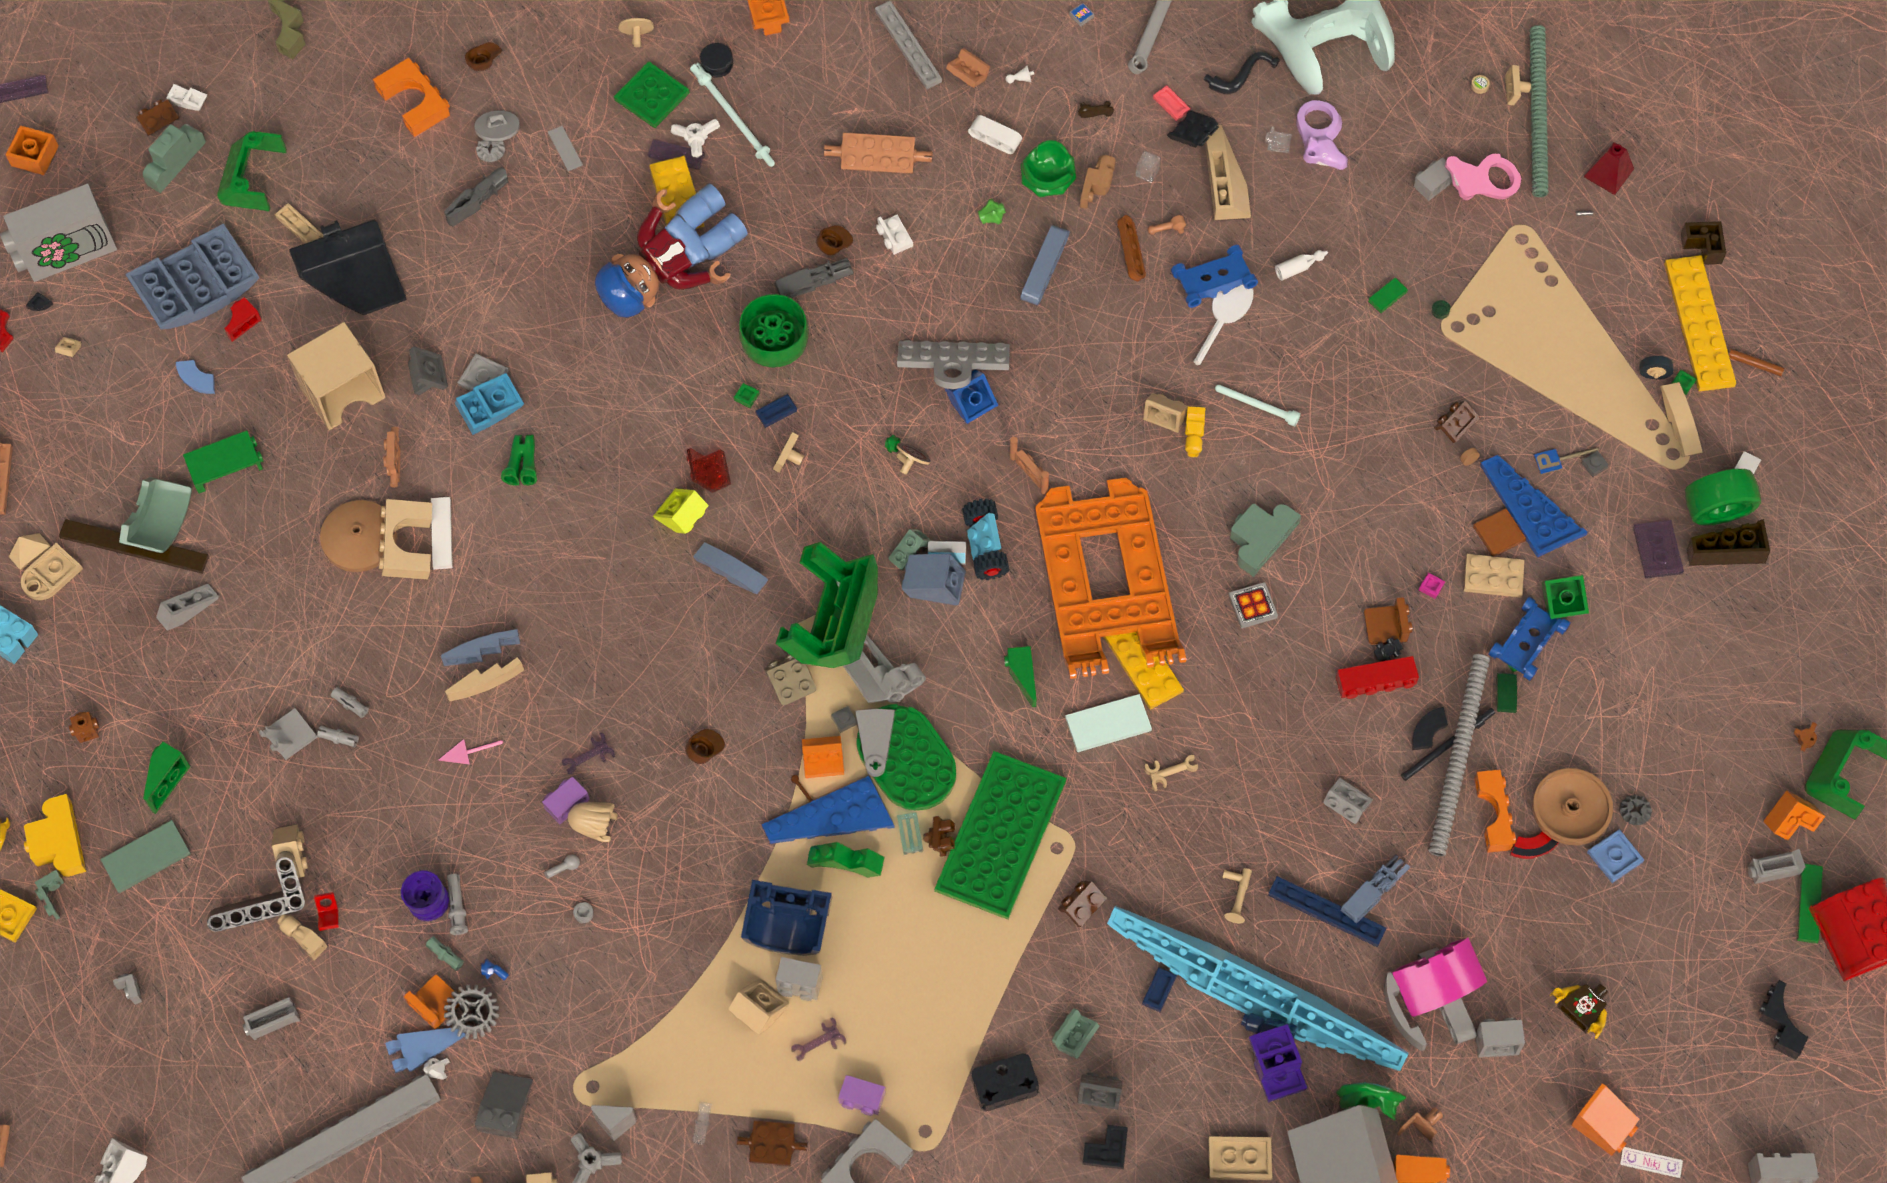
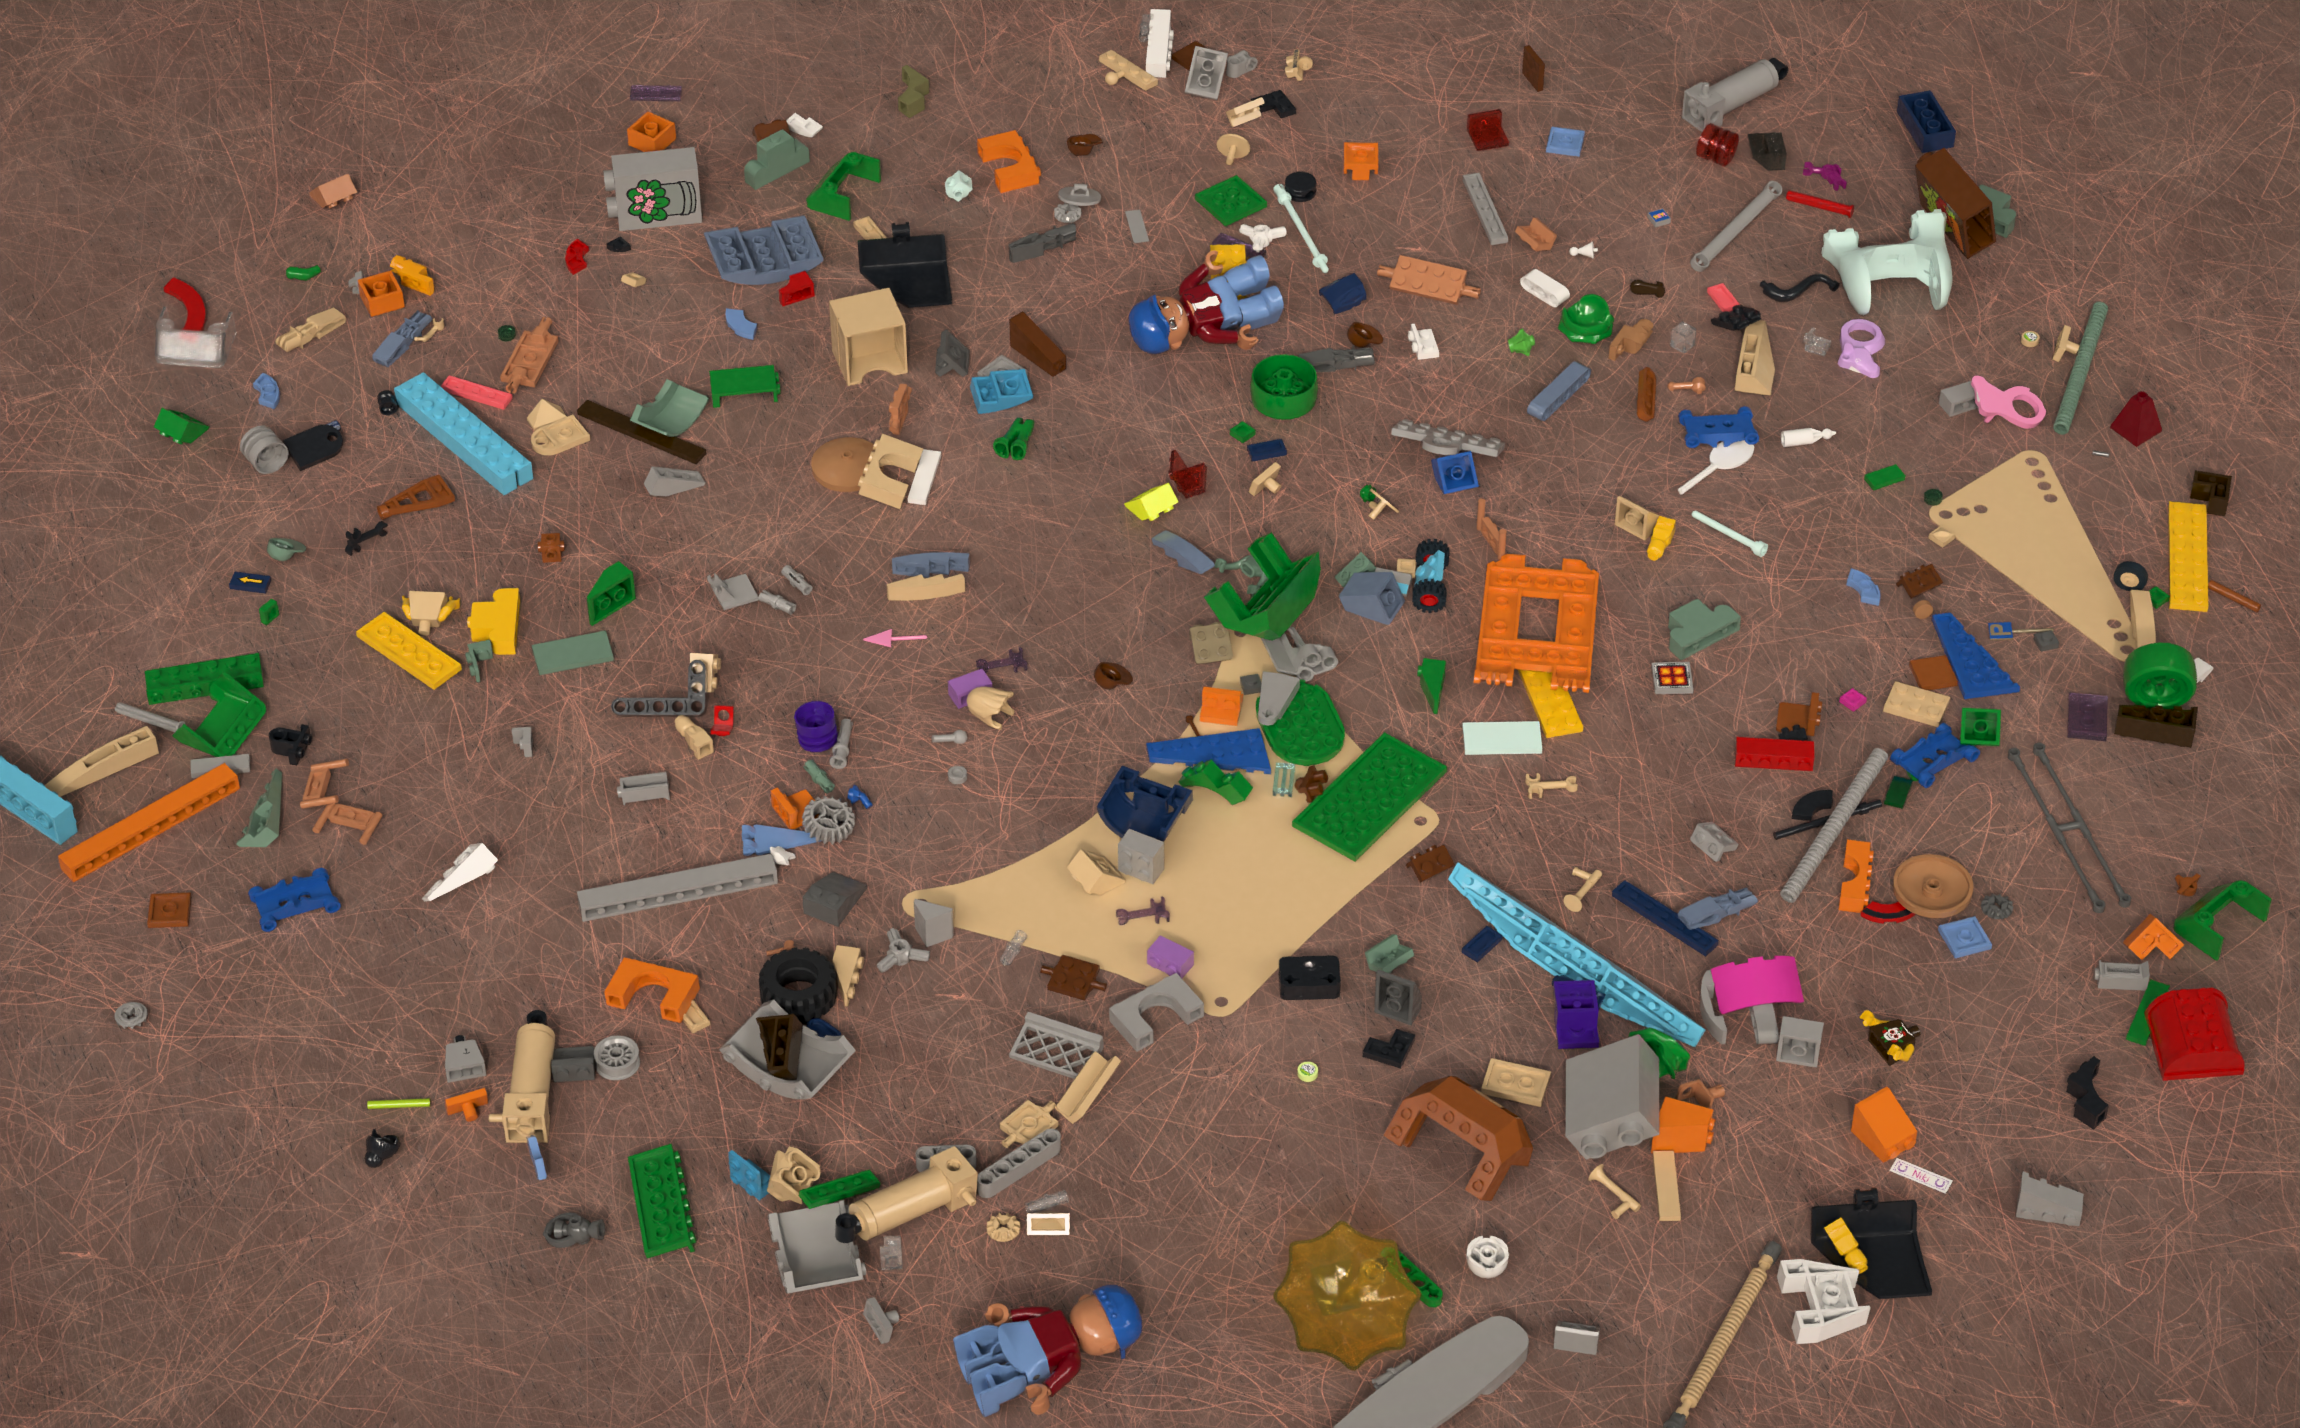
camera: 15 degrees right, 20 degrees down
(370, 144) = (958, 186): none -> light aqua brick
(509, 337) = (1035, 345): none -> reddish brown slope
(798, 189) = (1344, 293): none -> dark blue slope
(802, 574) = (1248, 566): none -> sand green piece
(956, 531) = (1406, 566): none -> tan plate
(1405, 439) = (1865, 586): none -> medium blue tile
(1462, 357) = (1942, 536): none -> tan tile
(1685, 685) = (2098, 904): none -> dark grey bar

